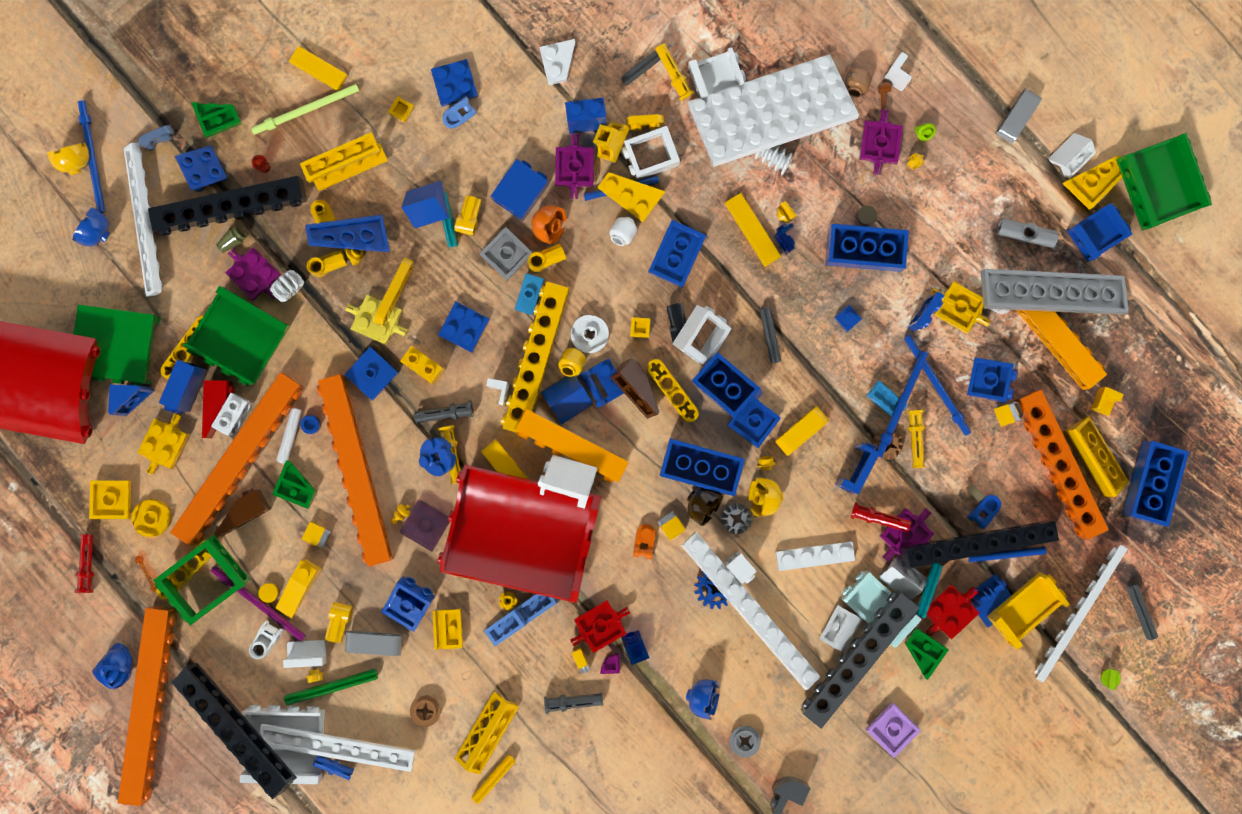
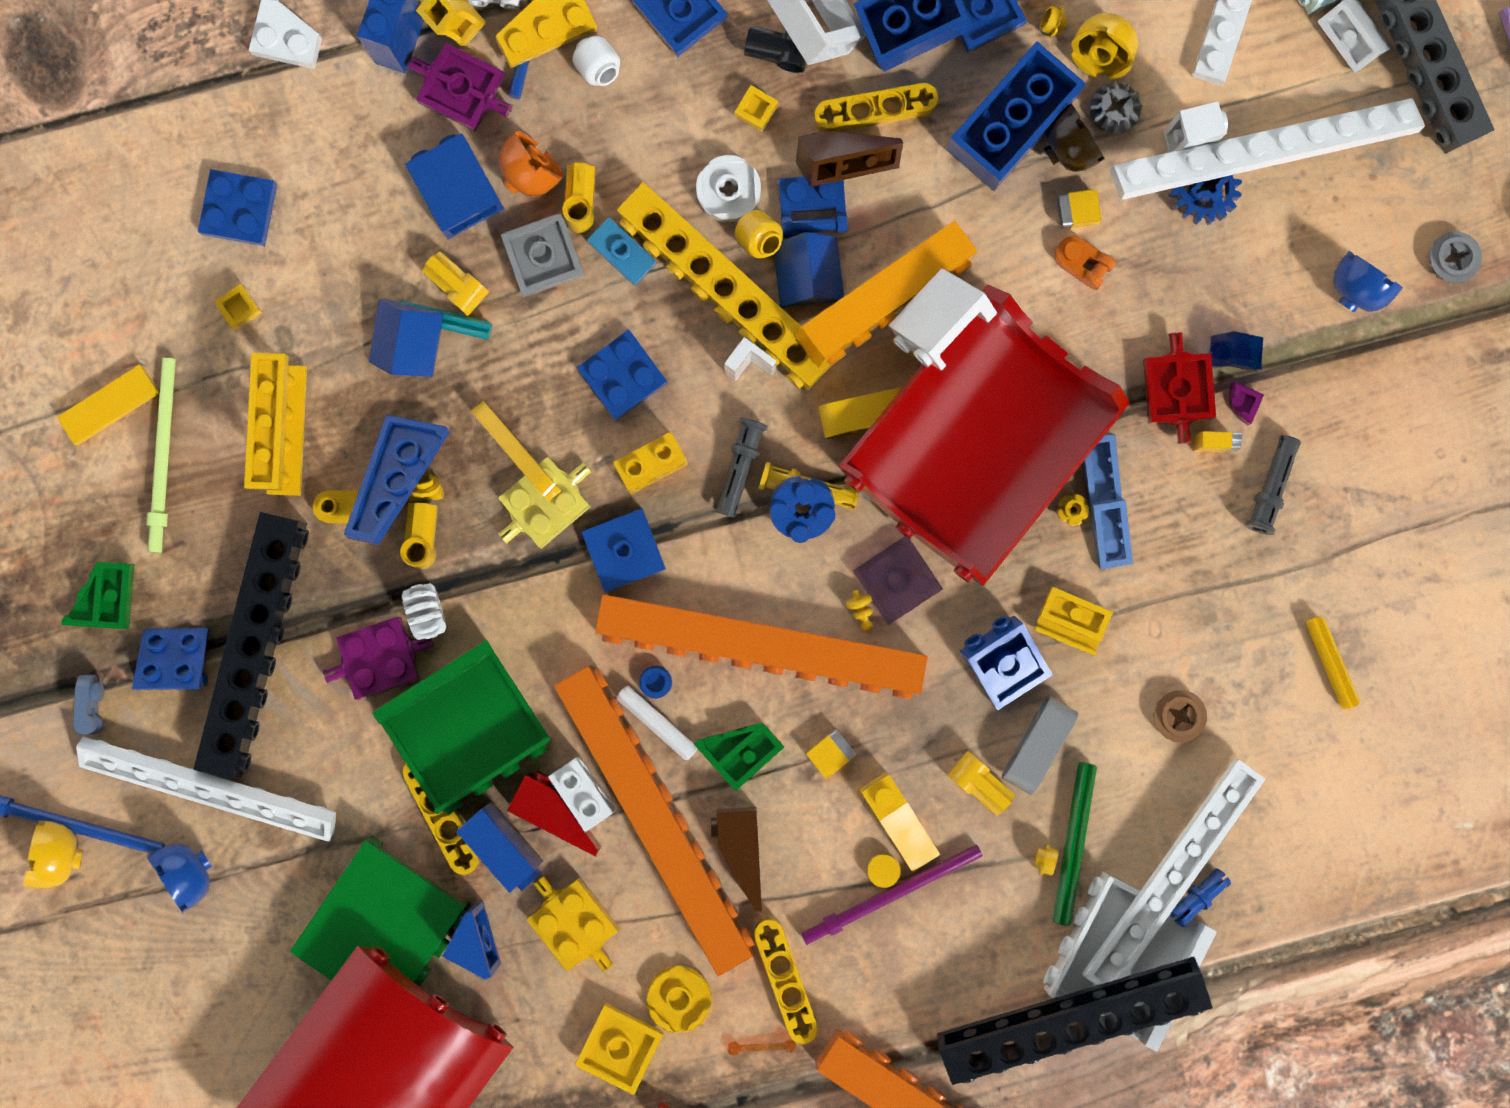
camera: 70 degrees left, 0 degrees up
(225, 561) = (807, 909): green window -> none
(231, 239) = (307, 666): olive cone -> none
(260, 163) = (211, 561): clear red pin -> none
(267, 637) = (952, 905): white piece -> none
(305, 654) = (1005, 858): white panel -> none
(452, 117) = (292, 233): medium blue plate -> none
(488, 736) = (1268, 635): yellow fence -> none

